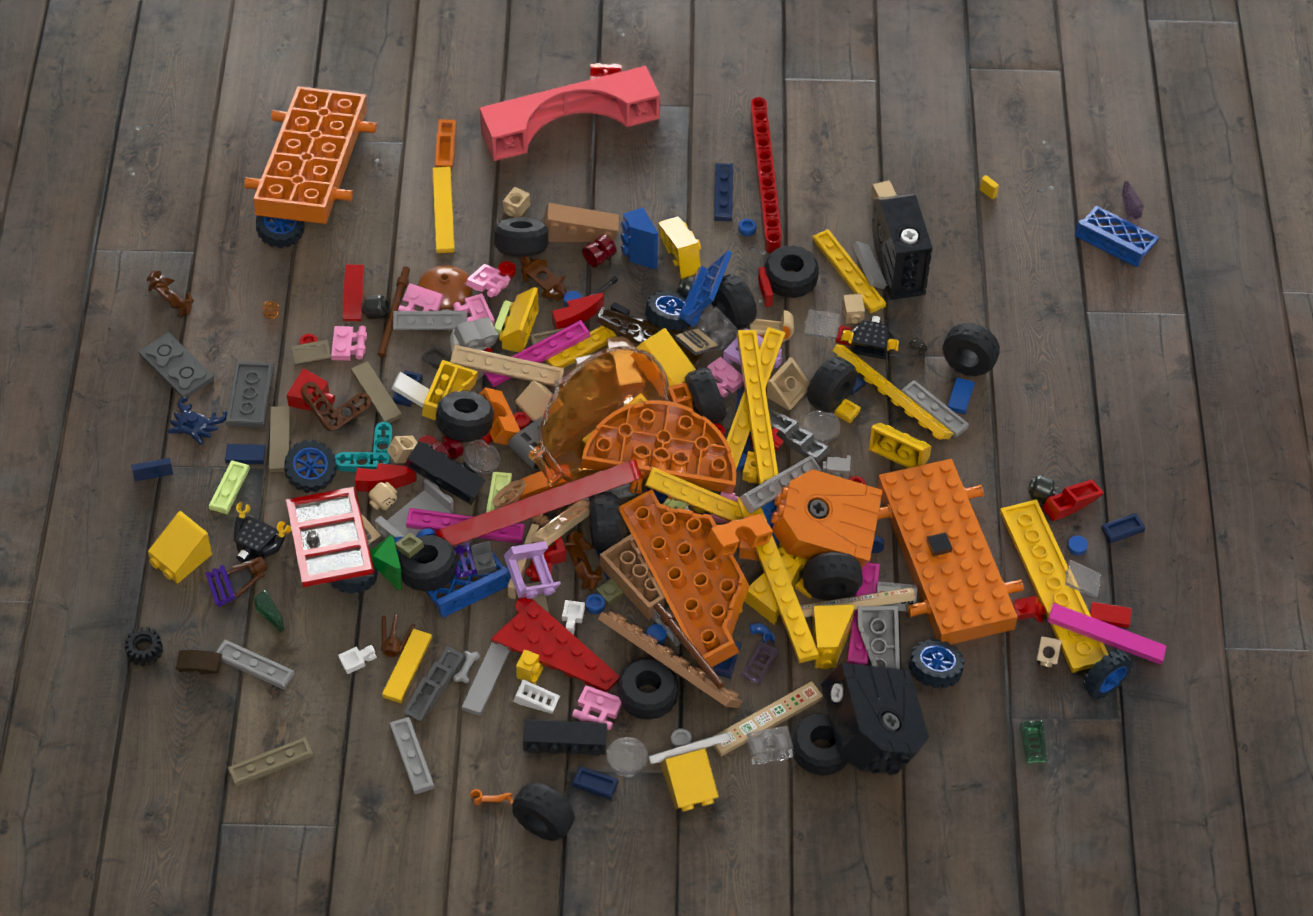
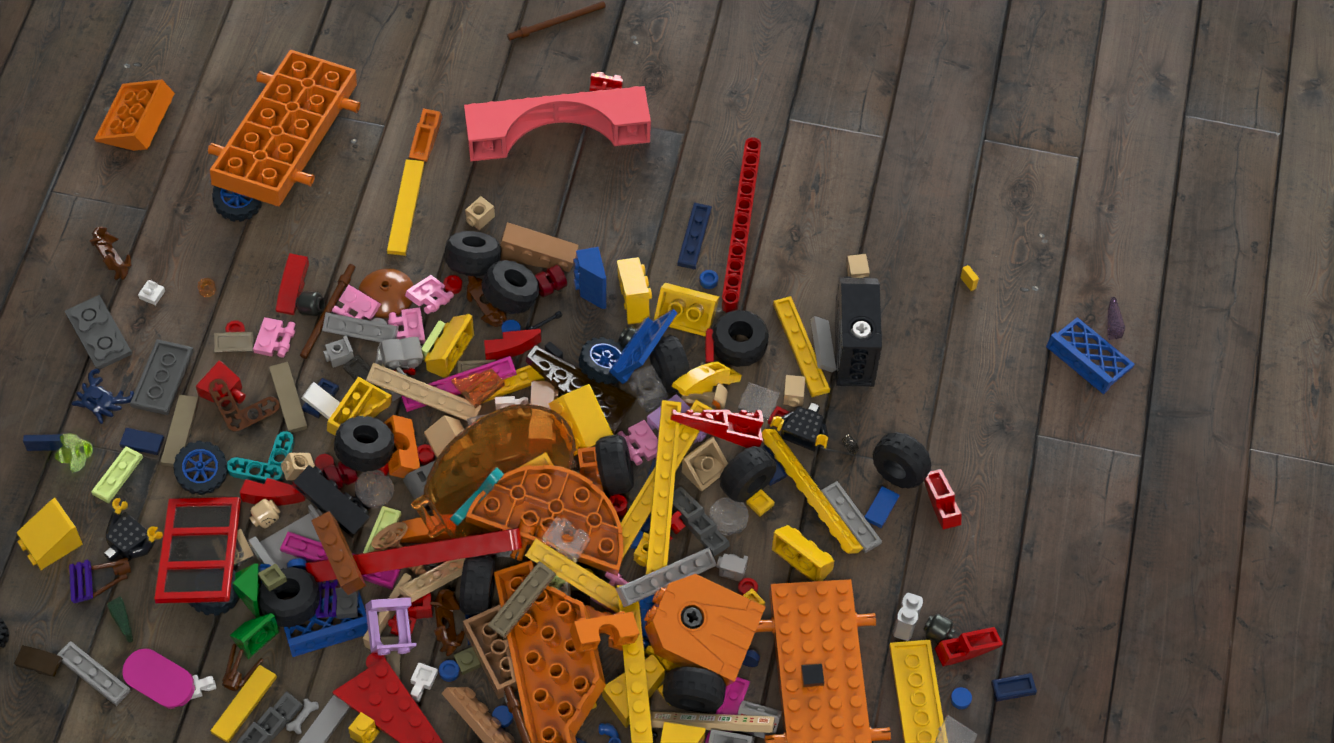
camera: 10 degrees right, 5 degrees up
(160, 168) = (135, 115): none -> orange slope
(180, 472) = (71, 453): none -> clear neon green plate
(218, 322) = (151, 292): none -> white tile
(320, 656) = (158, 678): none -> dark pink tile
(403, 600) = (255, 634): none -> green slope
(415, 344) = (338, 352): none -> light grey brick
(468, 512) = (338, 553): none -> dark orange brick
(516, 39) = (526, 31): none -> reddish brown bar
(558, 351) = (479, 386): none -> clear orange wing
(564, 260) = (510, 287): none -> black tyre
(595, 429) = (486, 486): none -> teal beam
(652, 524) = (522, 600): none -> dark tan tile
(671, 465) = (572, 549): none -> clear brick
(696, 341) = (622, 399): piece -> none
(744, 258) = (693, 308): none -> yellow slope
(770, 308) = (704, 378): none -> yellow slope
(805, 346) = (737, 428): none -> red wedge
(1011, 482) = (907, 616): none -> light grey brick
(1016, 380) = (943, 499): none -> red slope

